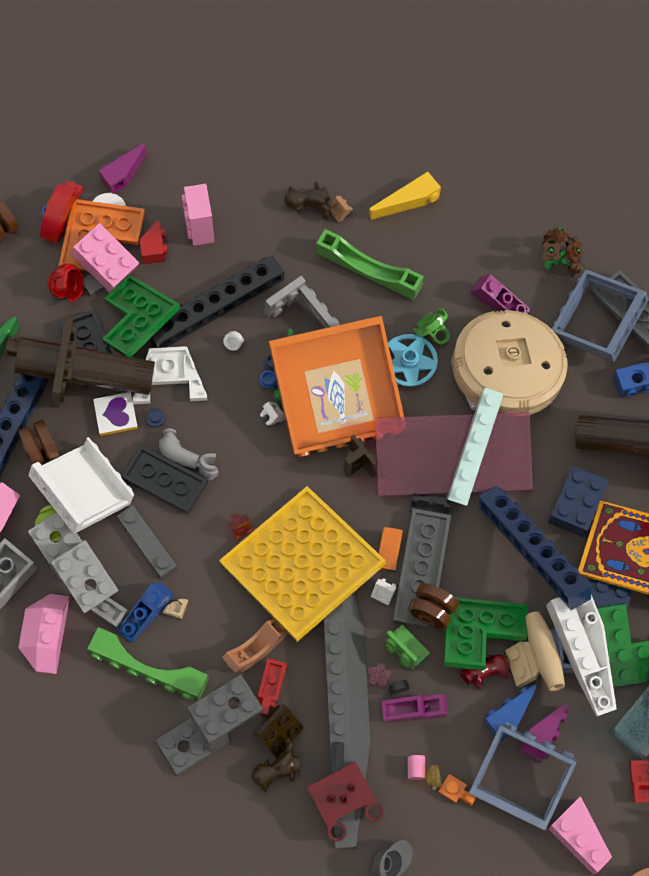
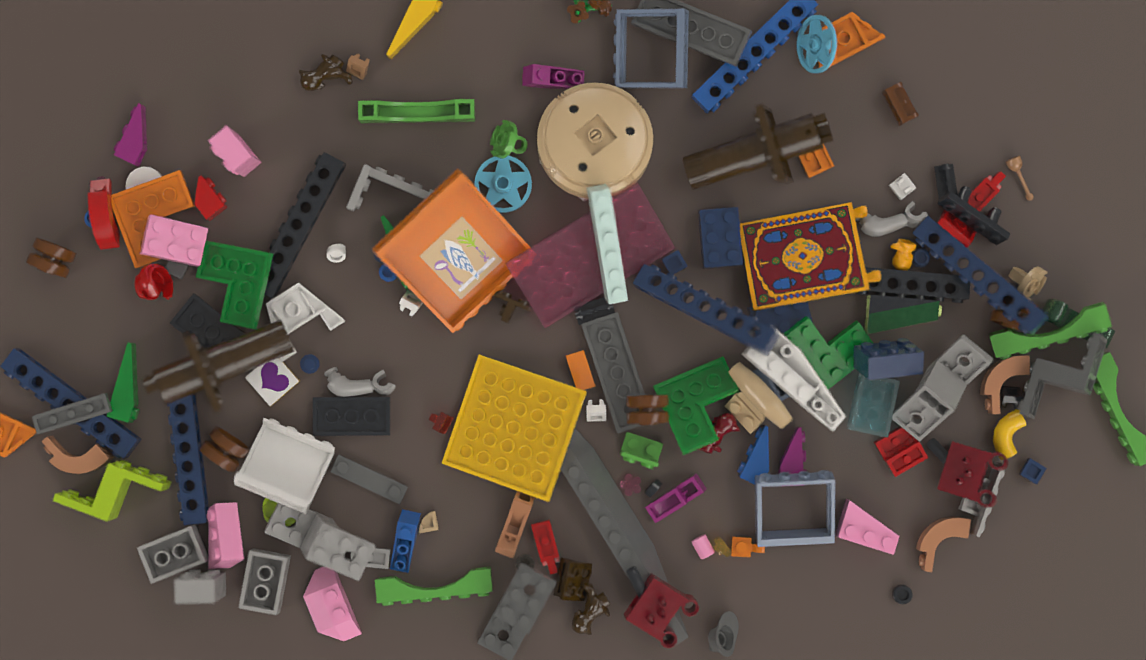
camera: 30 degrees left, 20 degrees up
(526, 501) = (674, 262): none -> dark blue plate

